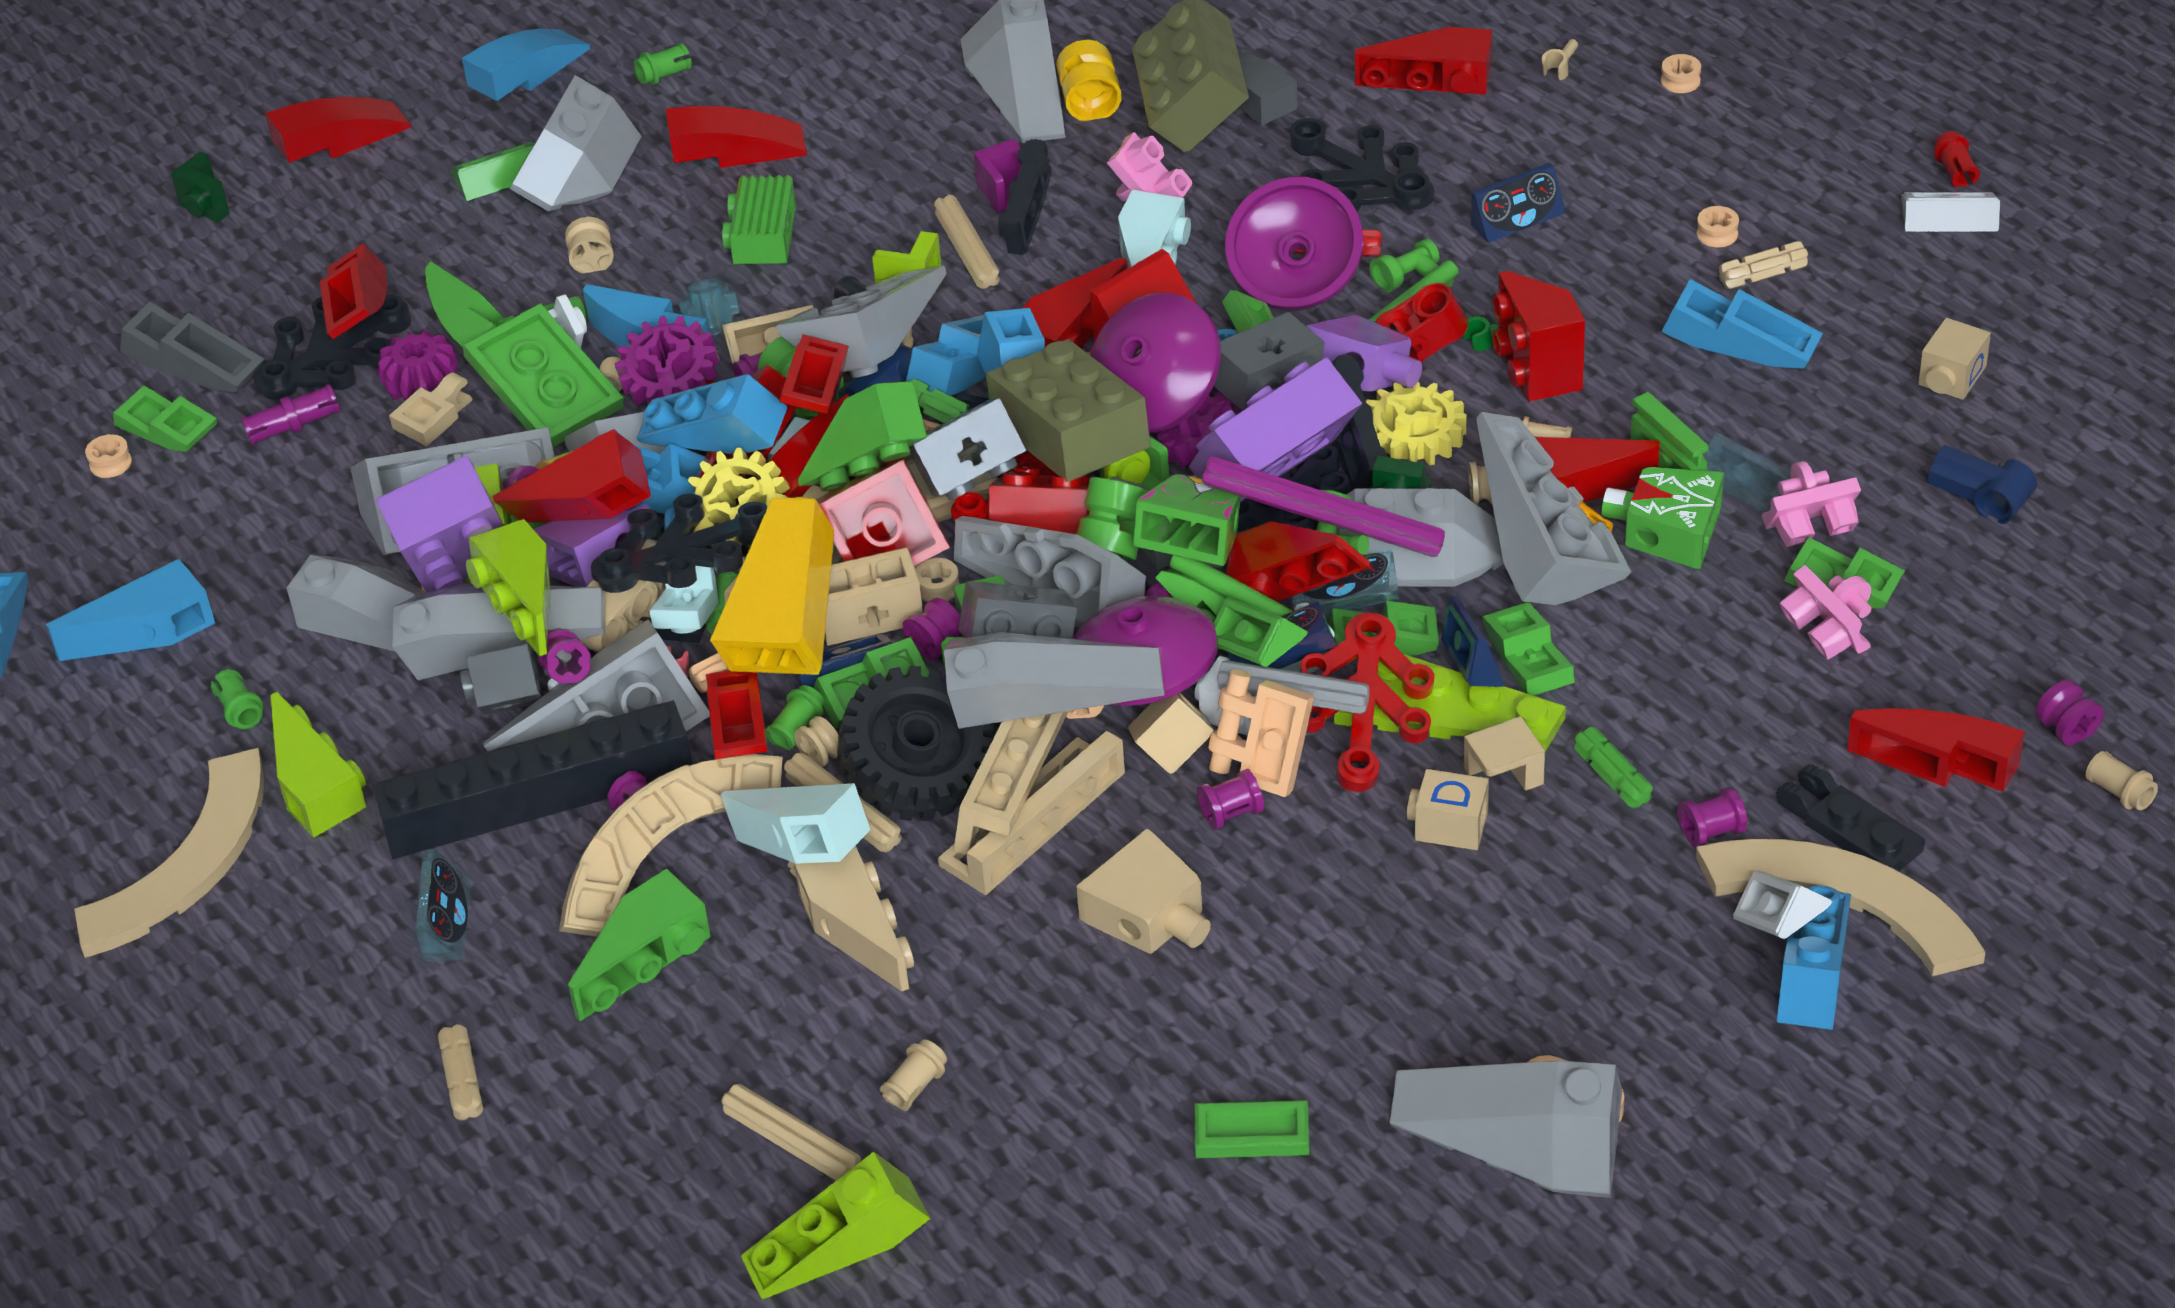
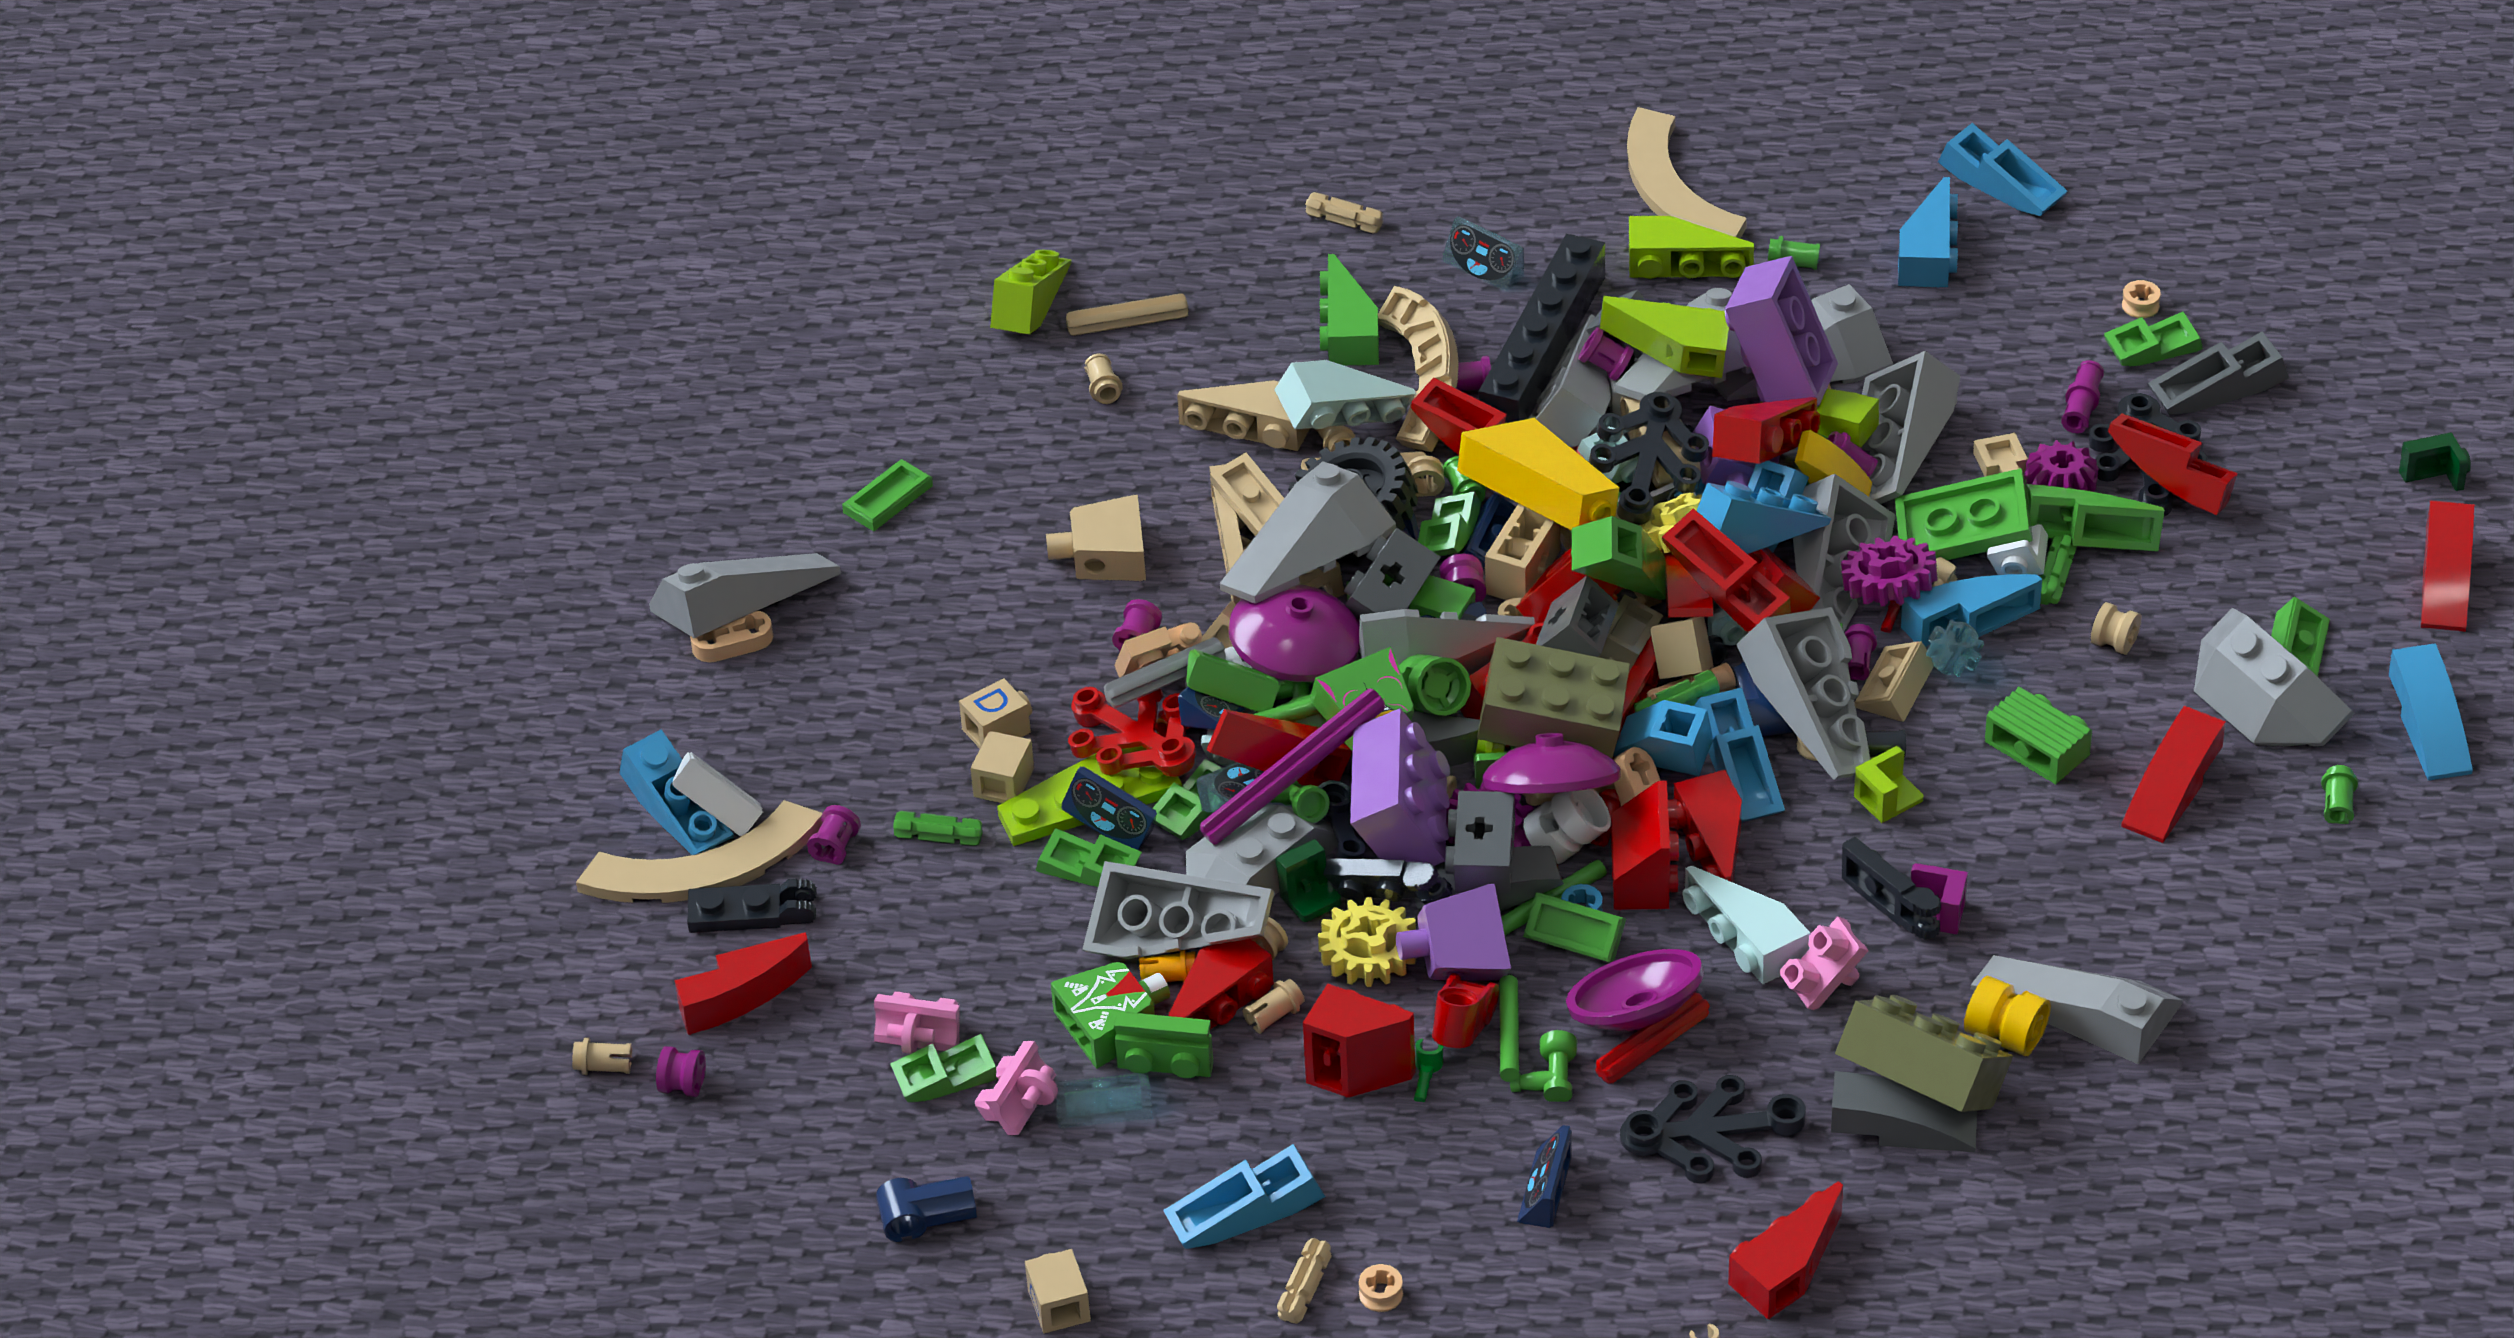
camera: 130 degrees right, 0 degrees up
(966, 242) = (1889, 842): tan axle -> none

